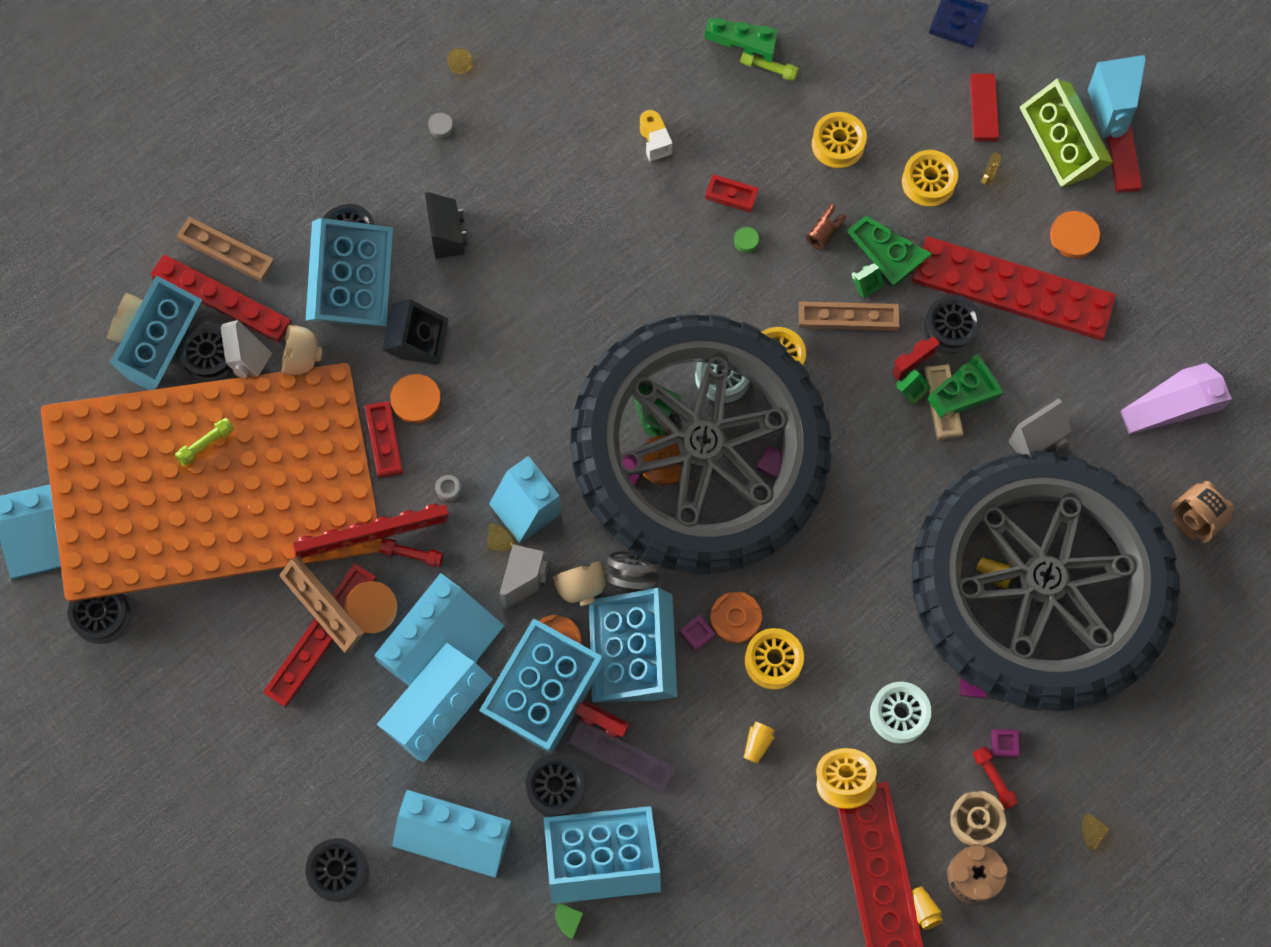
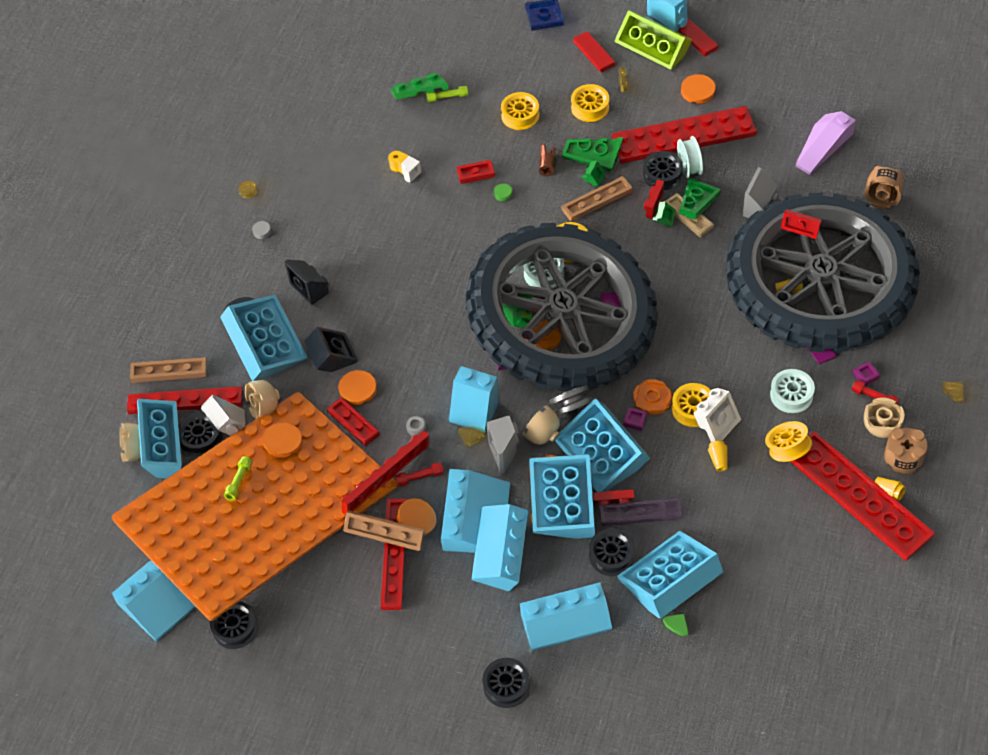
camera: 25 degrees left, 15 degrees down
(285, 419) = (282, 440): none -> orange tile
(787, 693) = (717, 414): none -> white plate
(993, 329) = (690, 156): none -> light aqua wheel
(1053, 509) = (801, 224): none -> red tile

